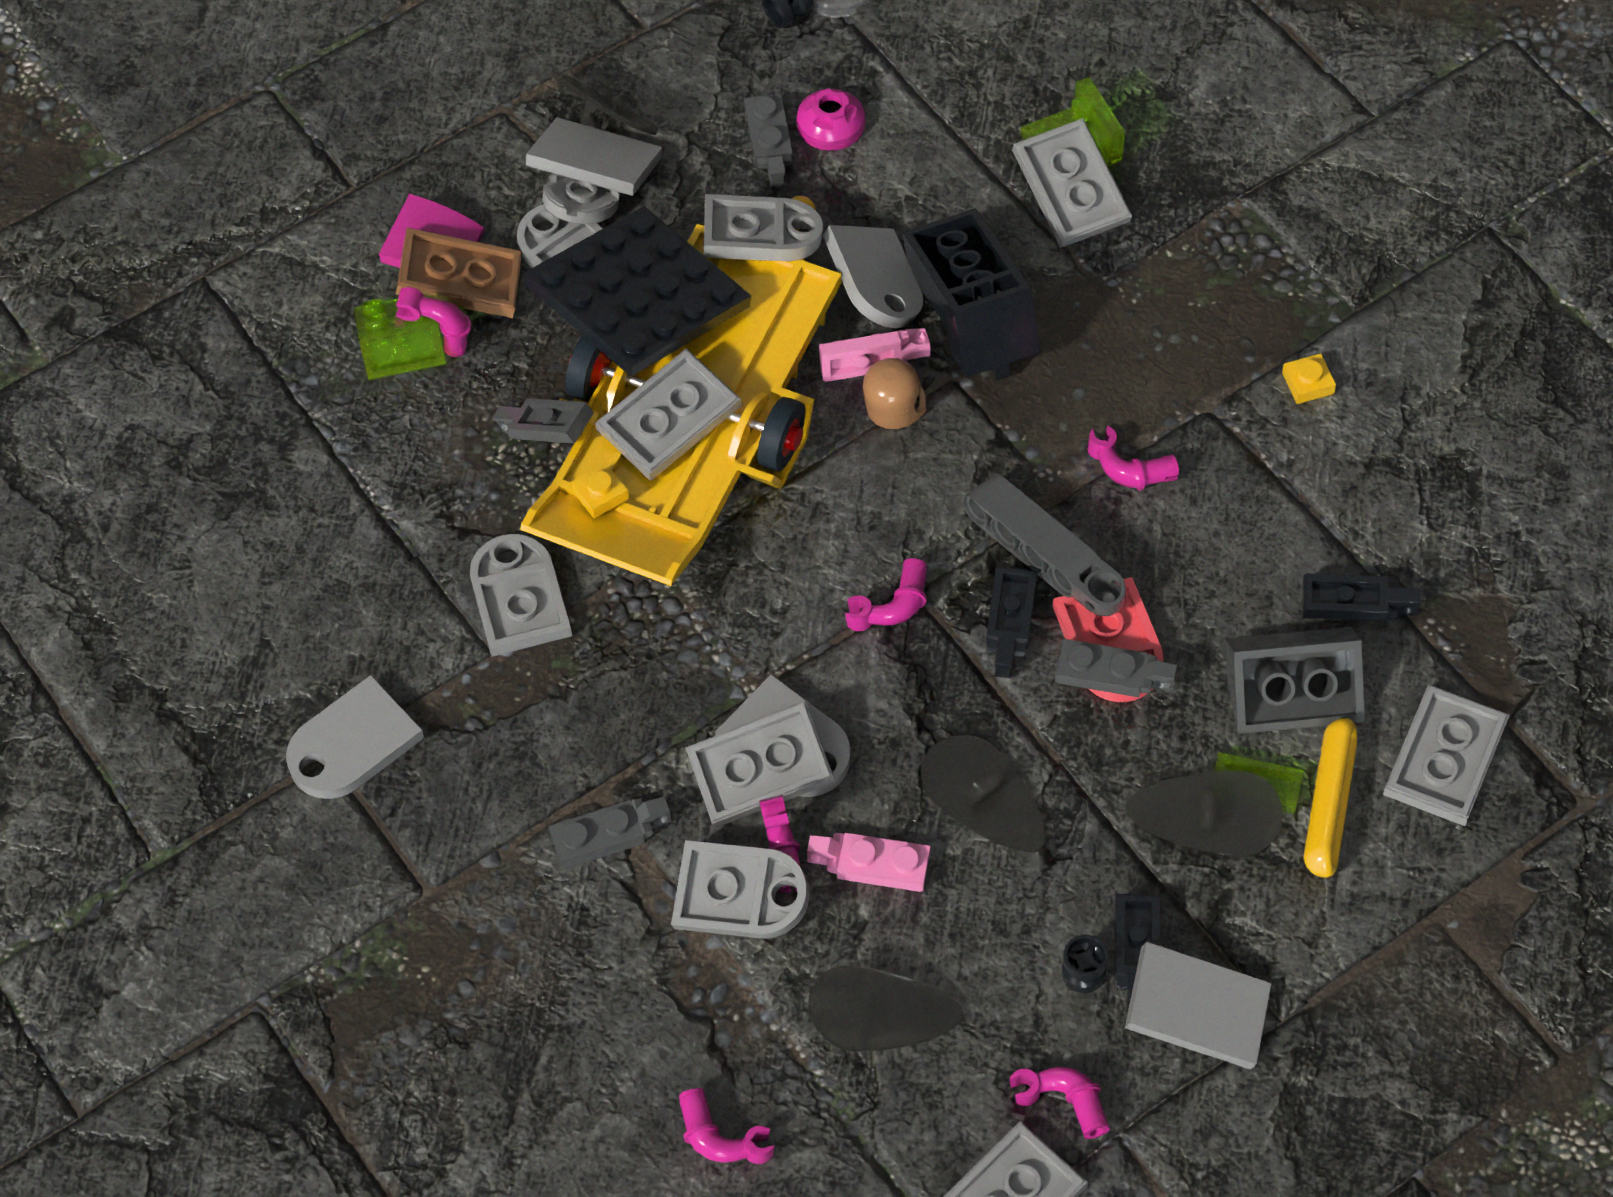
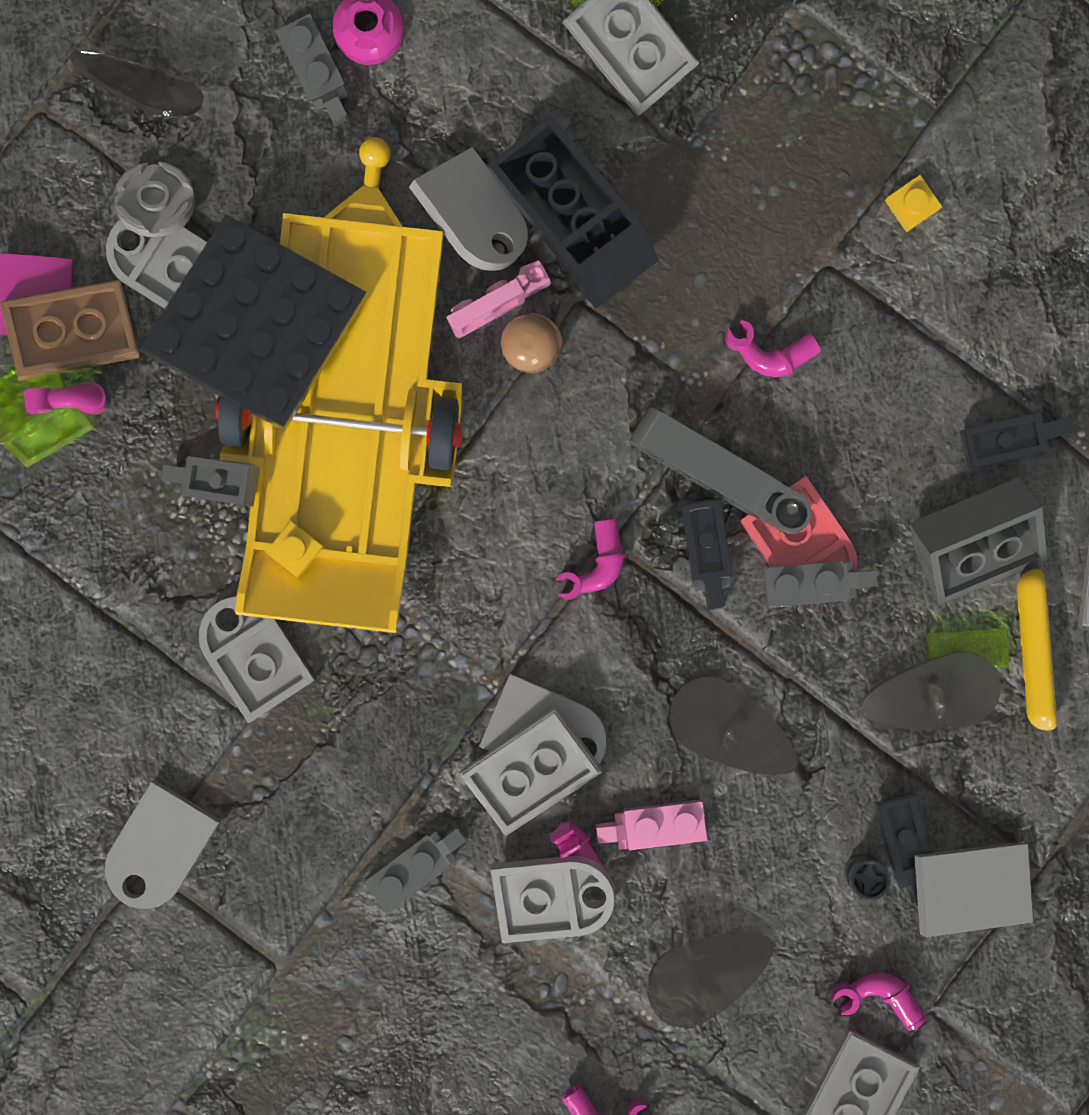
camera: 20 degrees left, 30 degrees up
(594, 156) = (150, 149): light grey tile -> none
(668, 414) = (331, 448): light grey tile -> none
(759, 228) = (343, 202): light grey tile -> none

